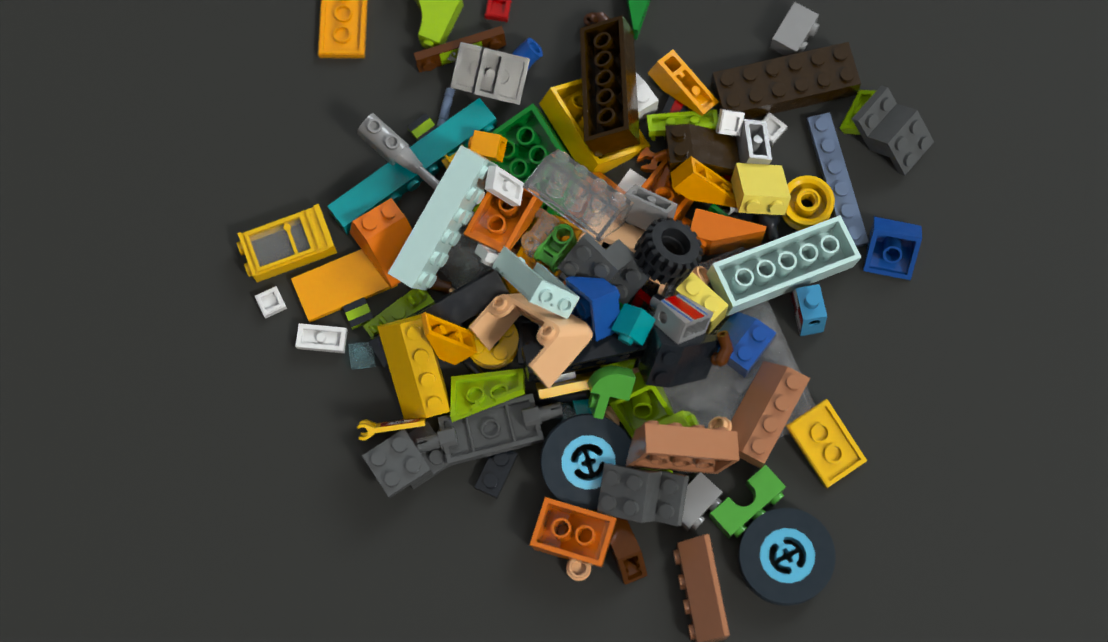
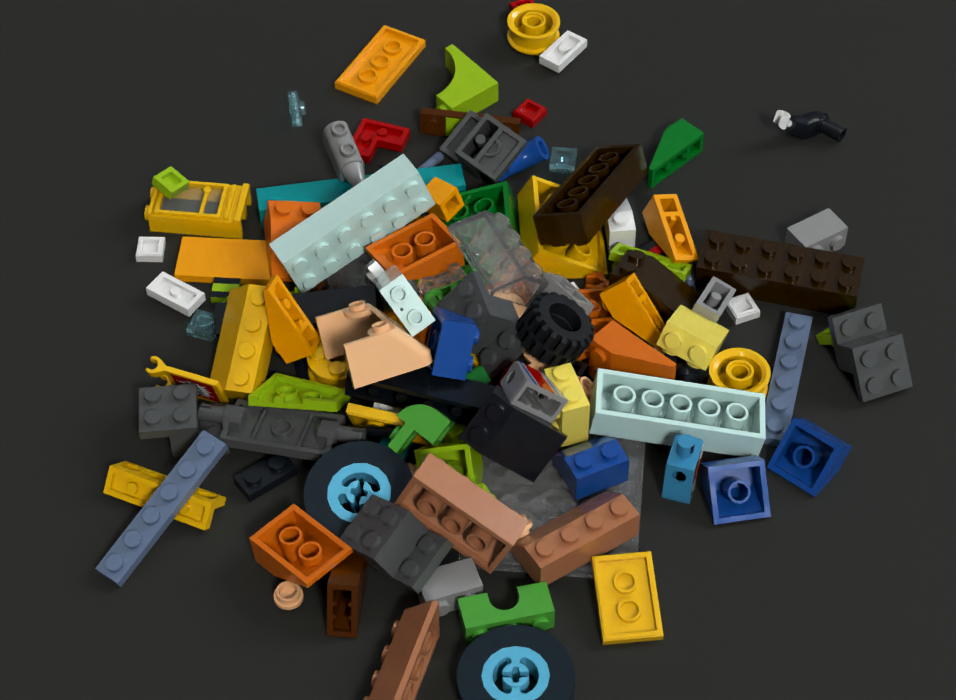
camera: 25 degrees right, 25 degrees down
(255, 238) = (170, 182): none -> lime plate
(304, 100) = (296, 108): none -> clear light blue plate
(389, 93) = (377, 134): none -> red plate
(430, 532) = (138, 484): none -> yellow fence
(443, 548) = (161, 508): none -> sand blue plate
(504, 185) = (427, 213): white plate -> none
(554, 47) = (563, 159): none -> clear light blue plate
(633, 325) = (477, 373): teal brick -> none
(726, 349) = (562, 448): reddish brown arm -> none
(730, 122) = (697, 274): white tile -> none
(854, 305) = (736, 489): none -> blue slope

